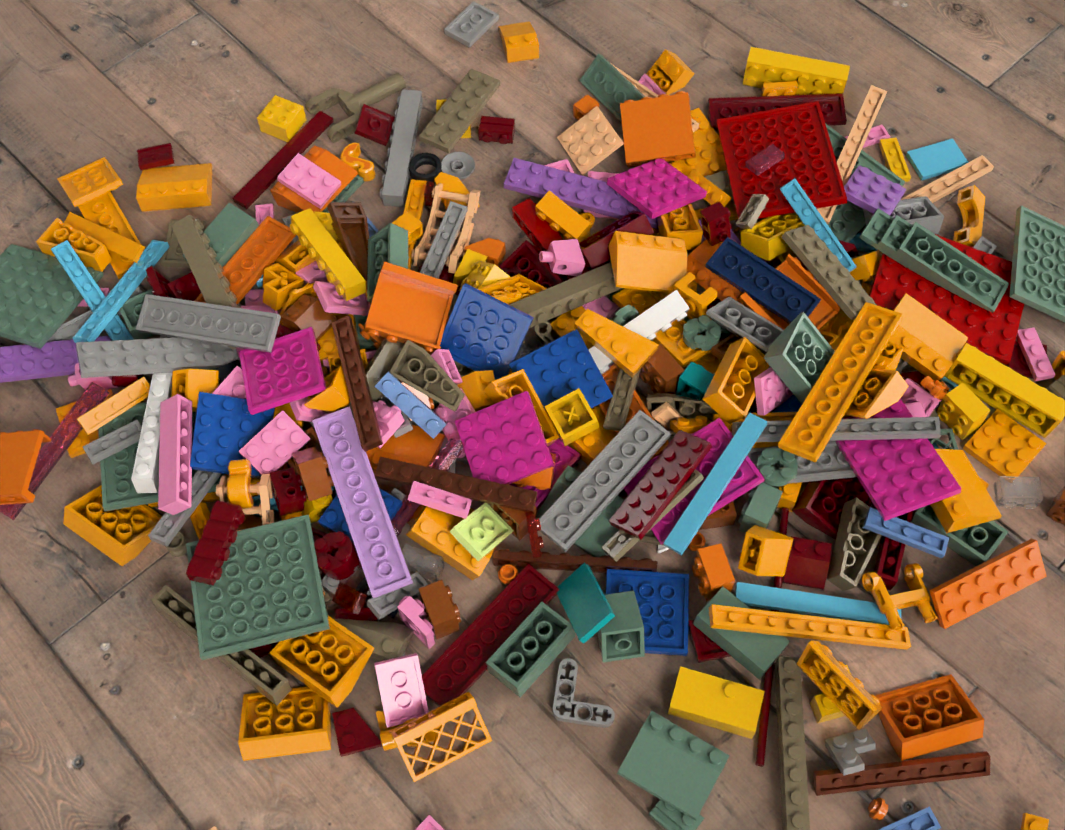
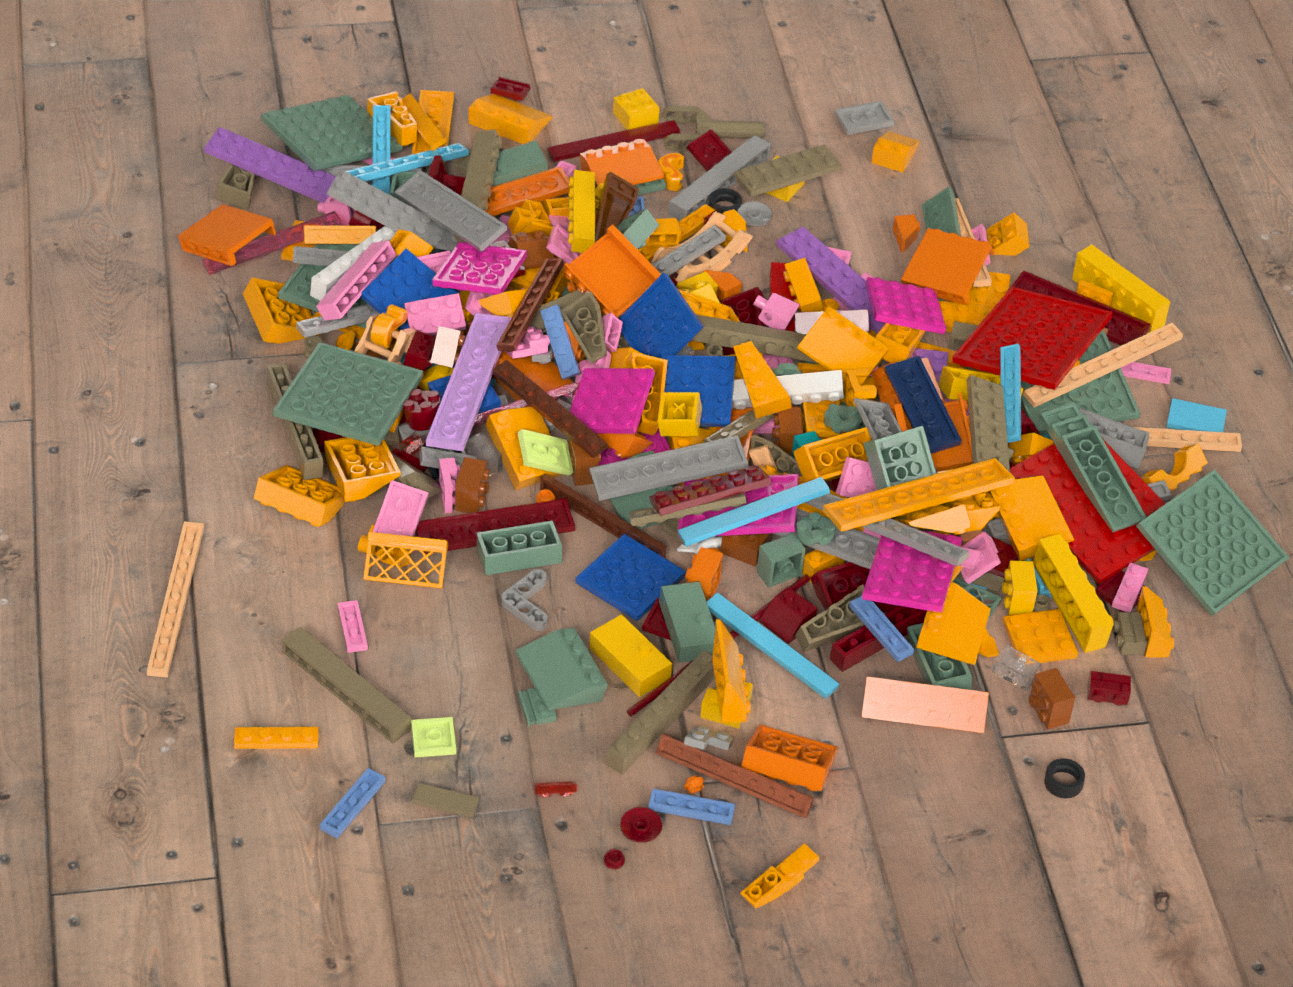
camera: 30 degrees right, 15 degrees down
(89, 181) = (442, 80): light orange plate -> none
(215, 543) = (338, 349): dark red brick -> none
(309, 181) = (616, 157): bright pink plate -> none
(353, 733) = (344, 529): dark red wing -> none
(439, 499) = (527, 409): bright pink plate -> none
(497, 129) = (812, 204): dark red brick -> none
(535, 541) = (583, 467): clear red plate -> none
(584, 603) = (582, 535): teal tile -> none
(590, 140) = (885, 249): light nougat plate -> none
(623, 634) = (596, 566): sand green slope -> none
(713, 193) = (952, 337): light orange plate -> none
(716, 223) = (922, 344): dark red brick -> none
(752, 211) = (970, 352): dark tan plate -> none
(765, 159) = (1017, 328): clear pink plate -> none
(765, 552) = (756, 583): light orange slope -> none
(807, 627) = (747, 644): light orange plate -> none
(873, 191) = (1095, 400): medium lavender plate -> none
(889, 604) = (829, 670): light orange connector -> none
(894, 158) = (1153, 398): yellow plate -> none
(936, 388) = (1001, 550): orange plate -> none

